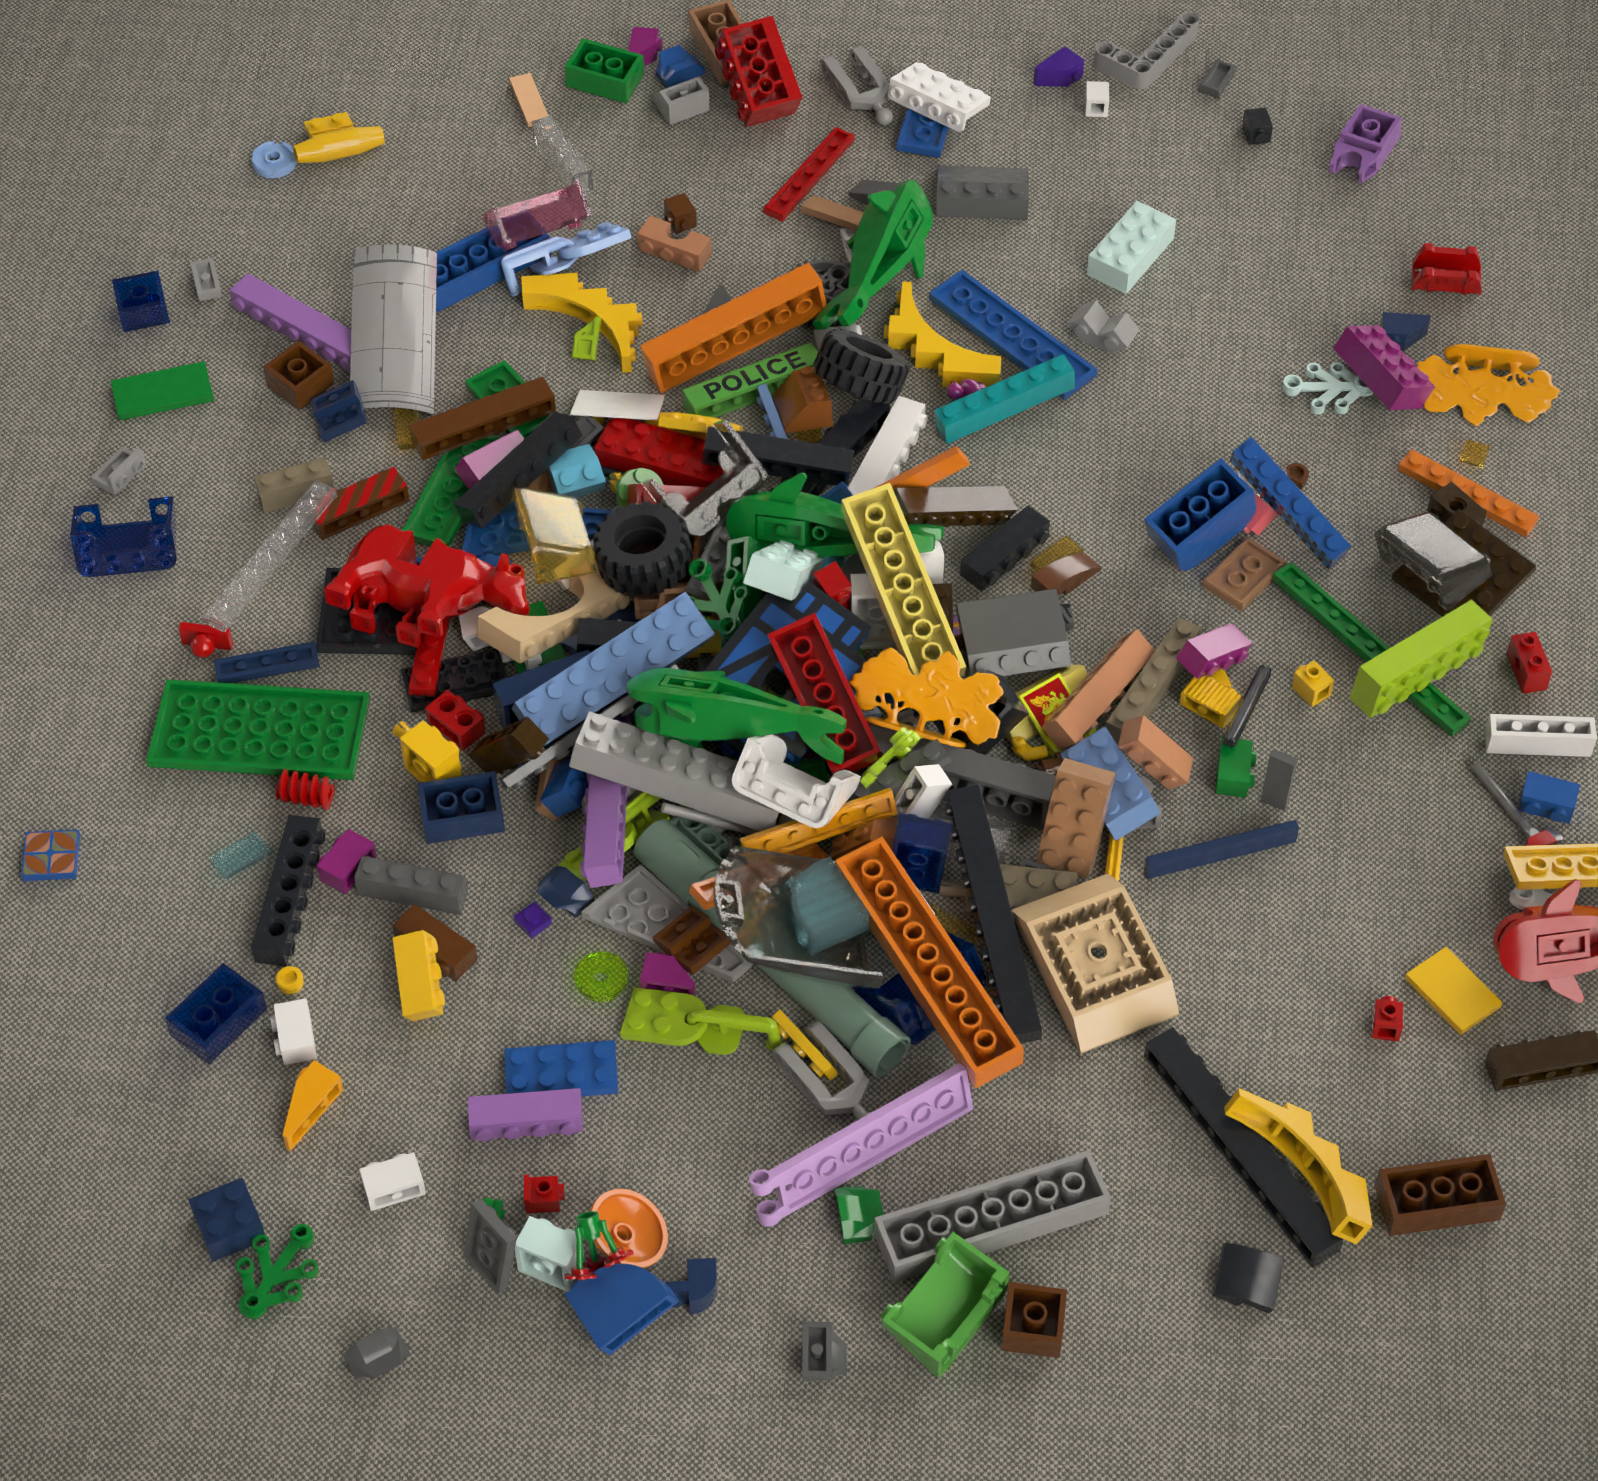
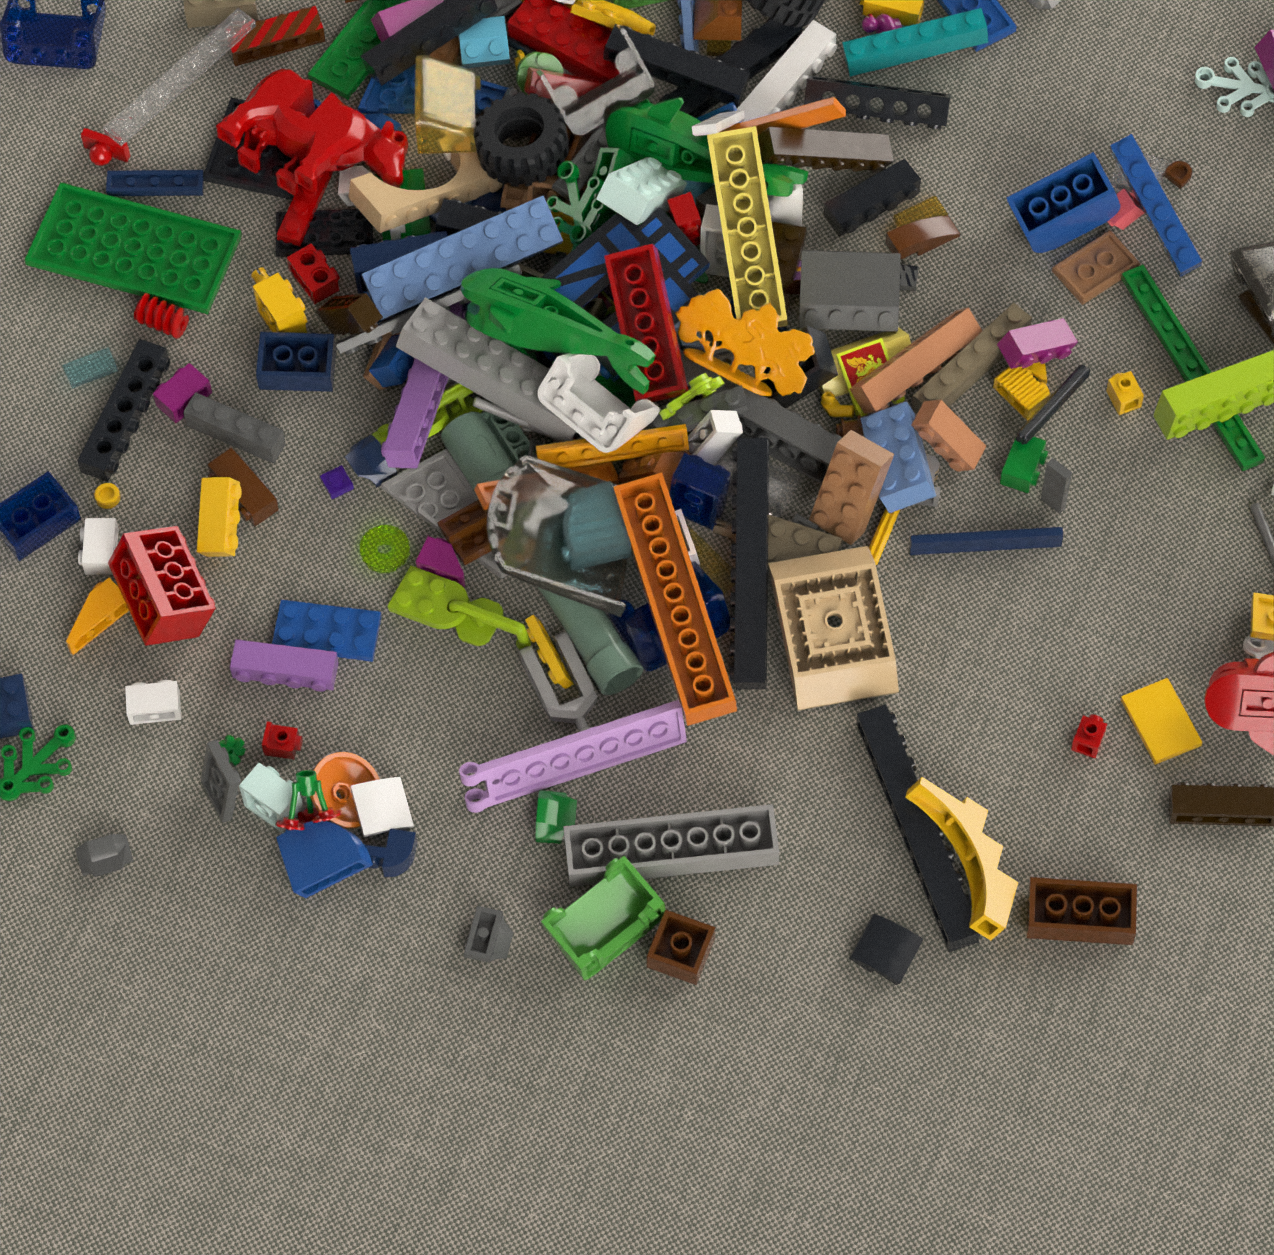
camera: 15 degrees right, 10 degrees up
(374, 1056) = (161, 585): none -> red brick
(669, 1239) = (381, 806): none -> white slope
(842, 493) = (718, 123): none -> white tile
(1046, 450) = (937, 101): none -> black brick

